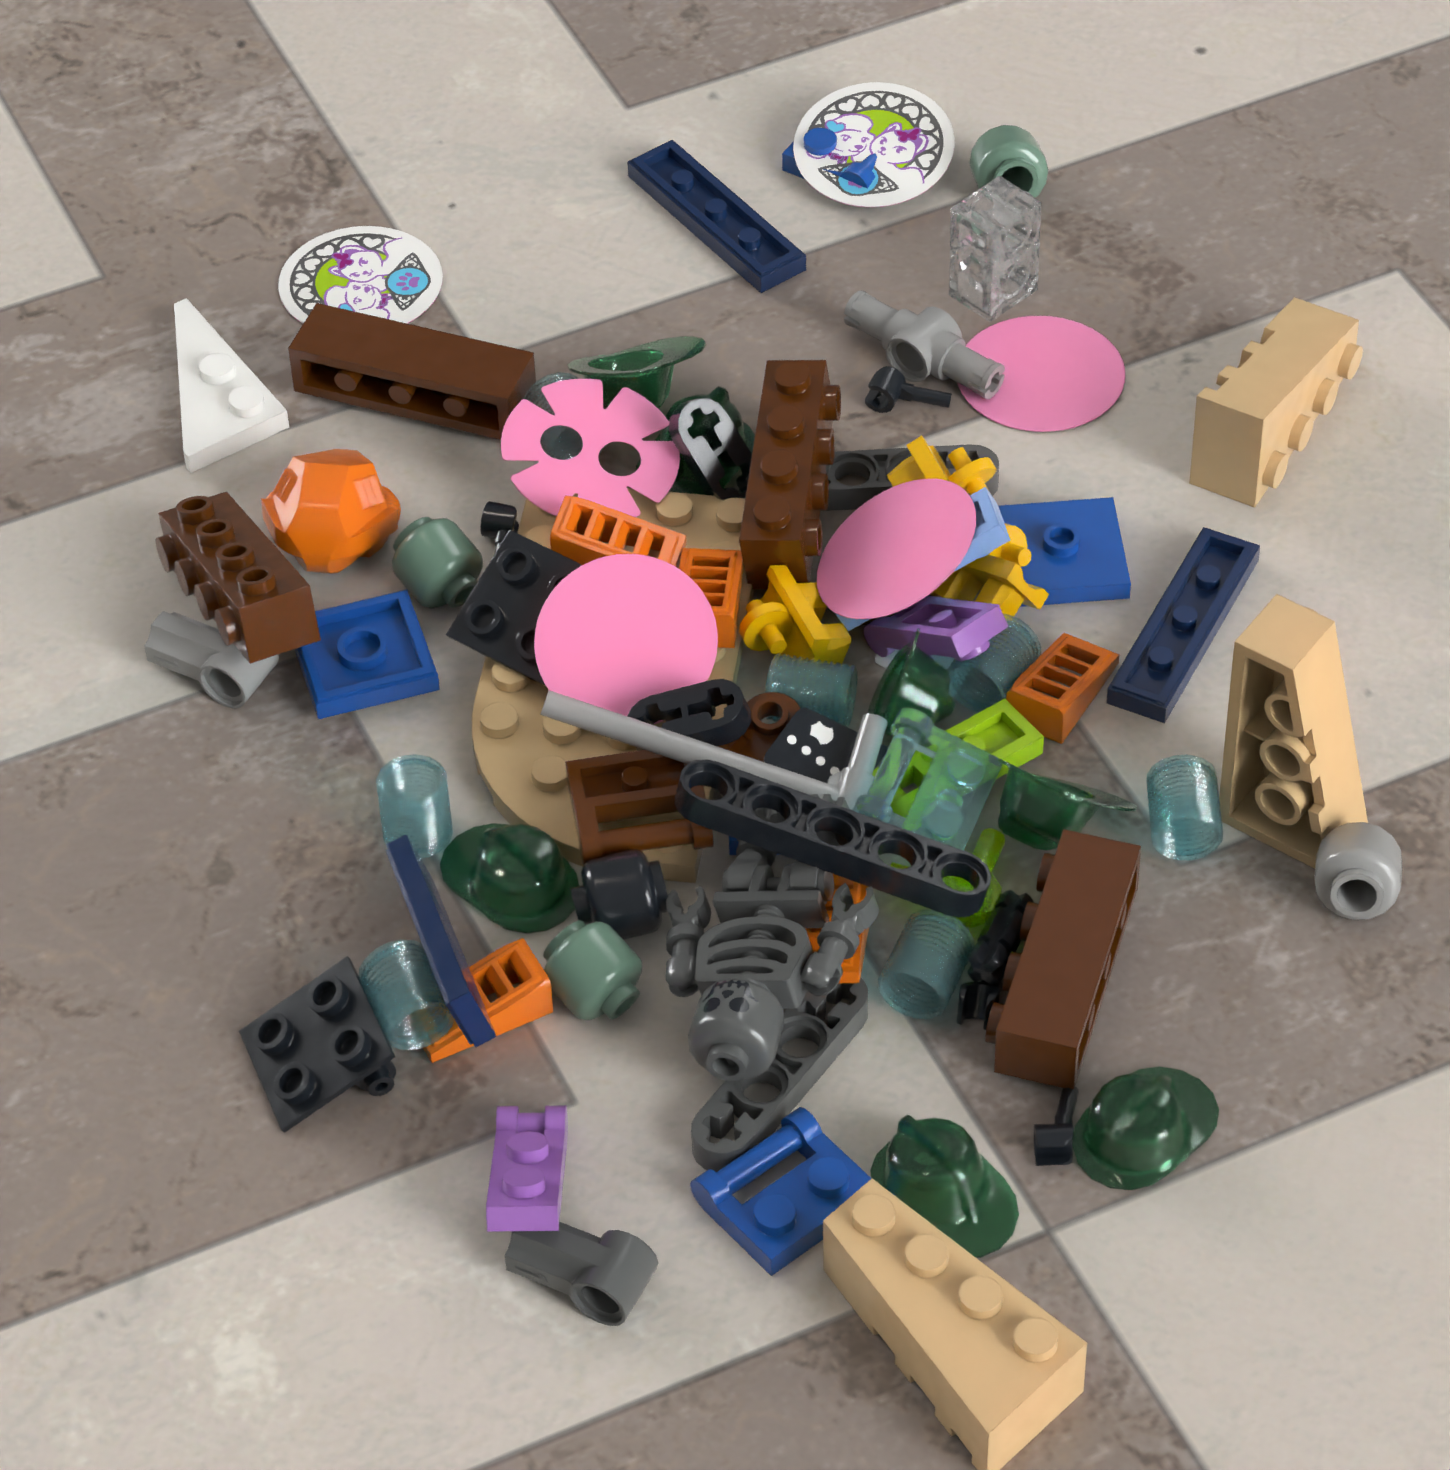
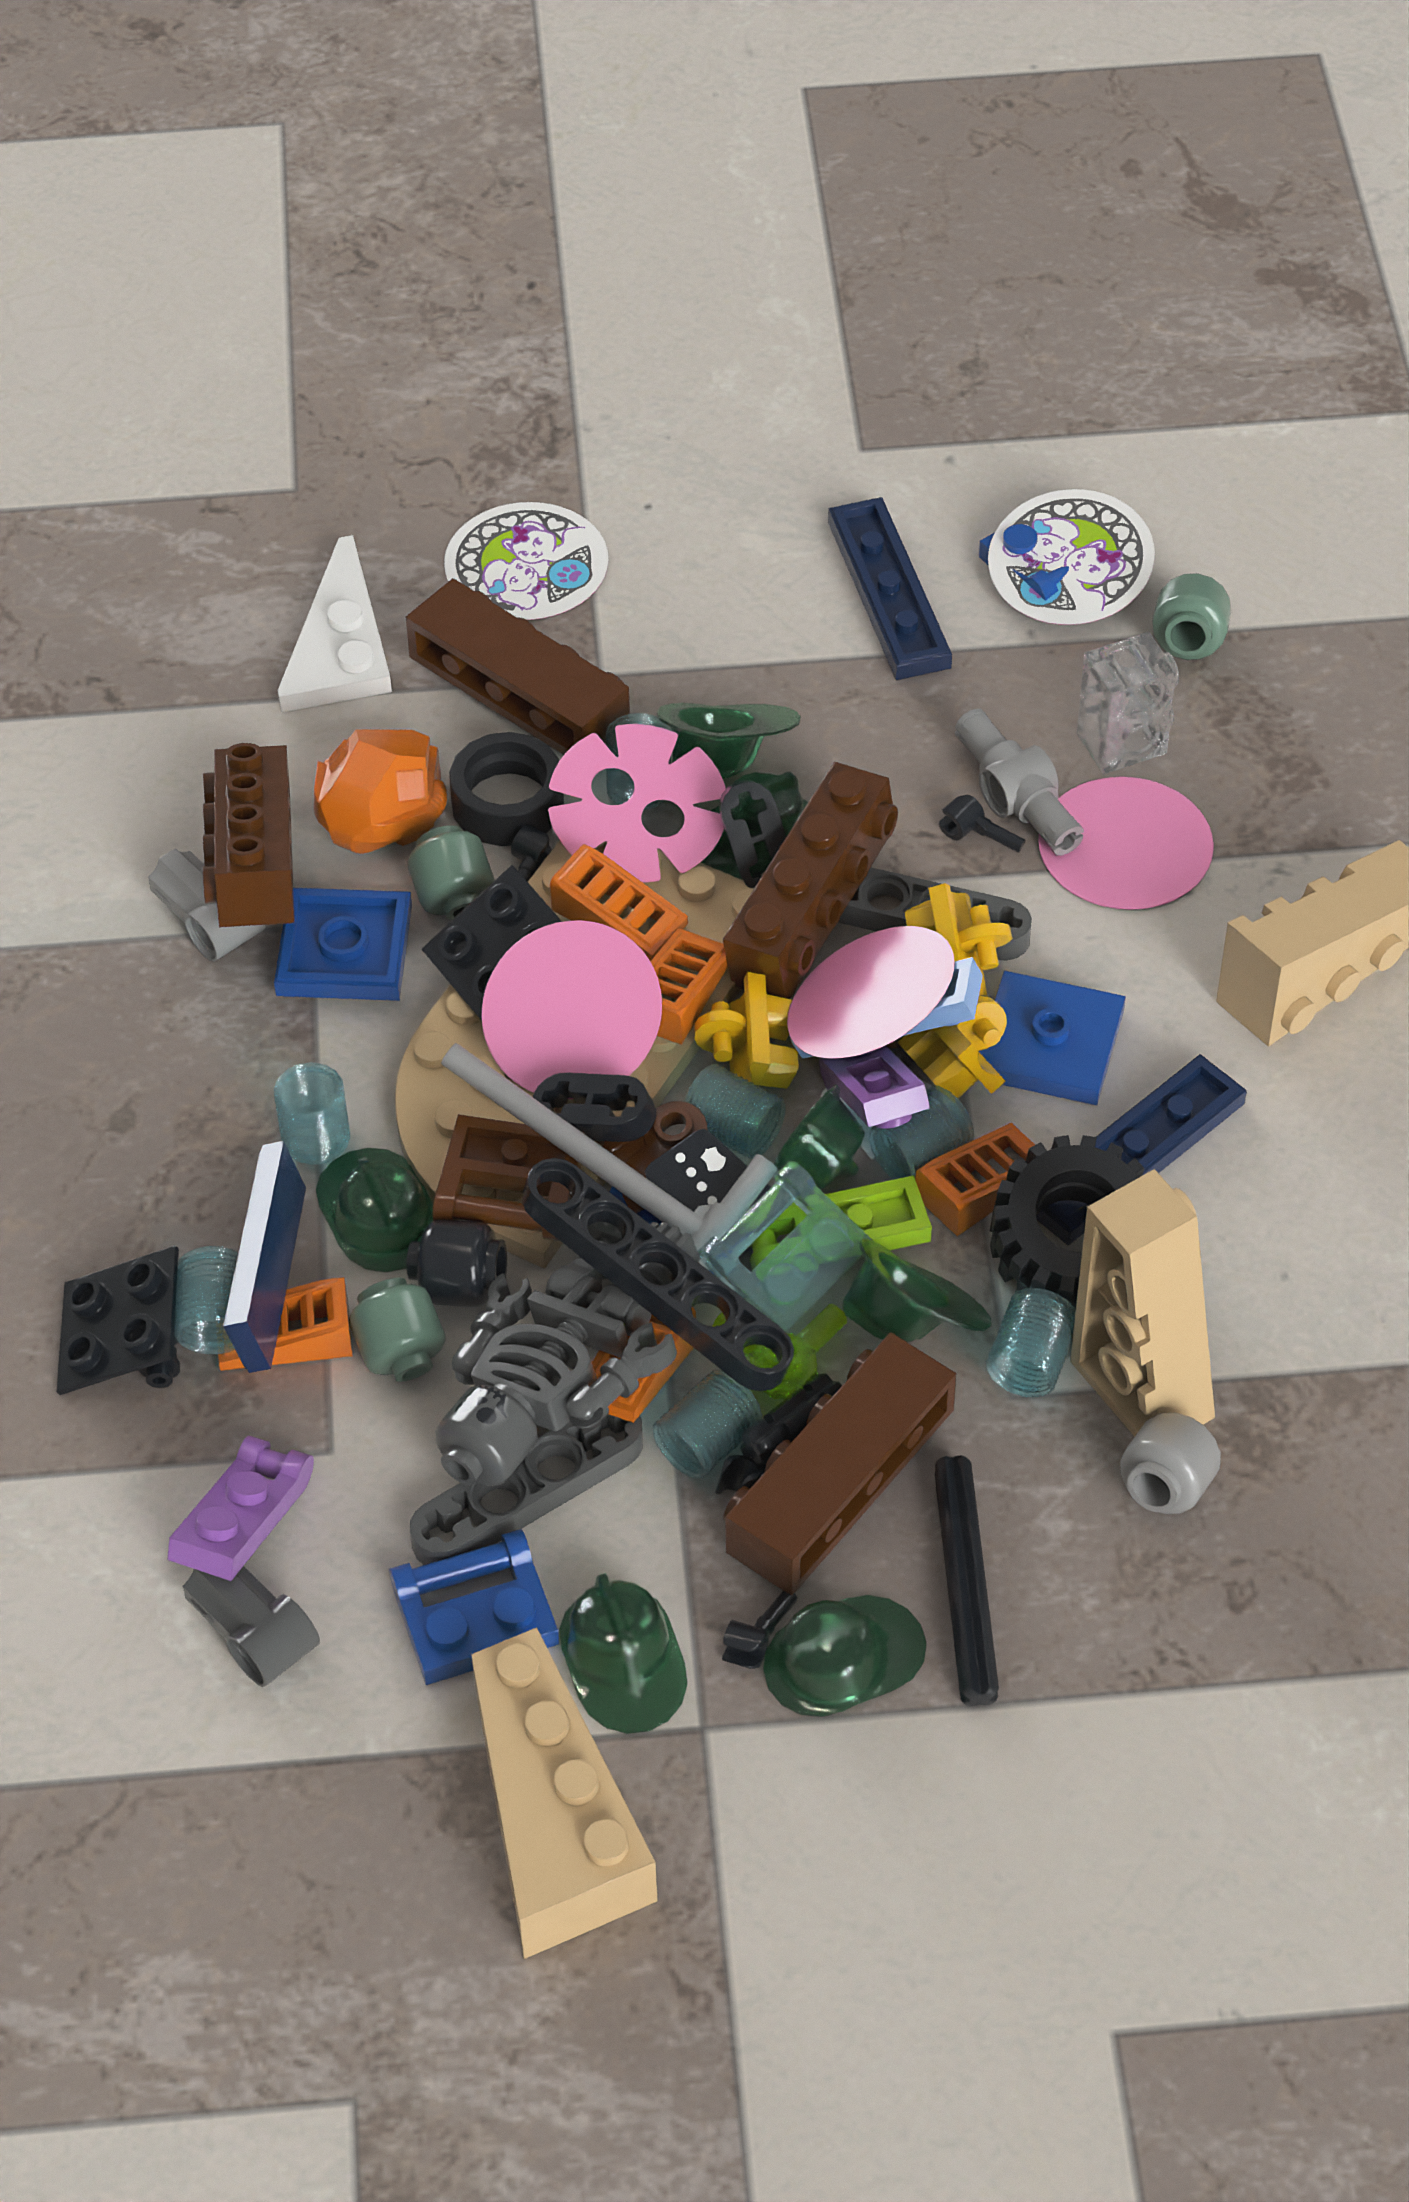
camera: 20 degrees right, 5 degrees up
(443, 447) = (497, 756): none -> black tyre
(1173, 649) = (1045, 1178): none -> black tyre
(1225, 1028) = (966, 1581): none -> black axle

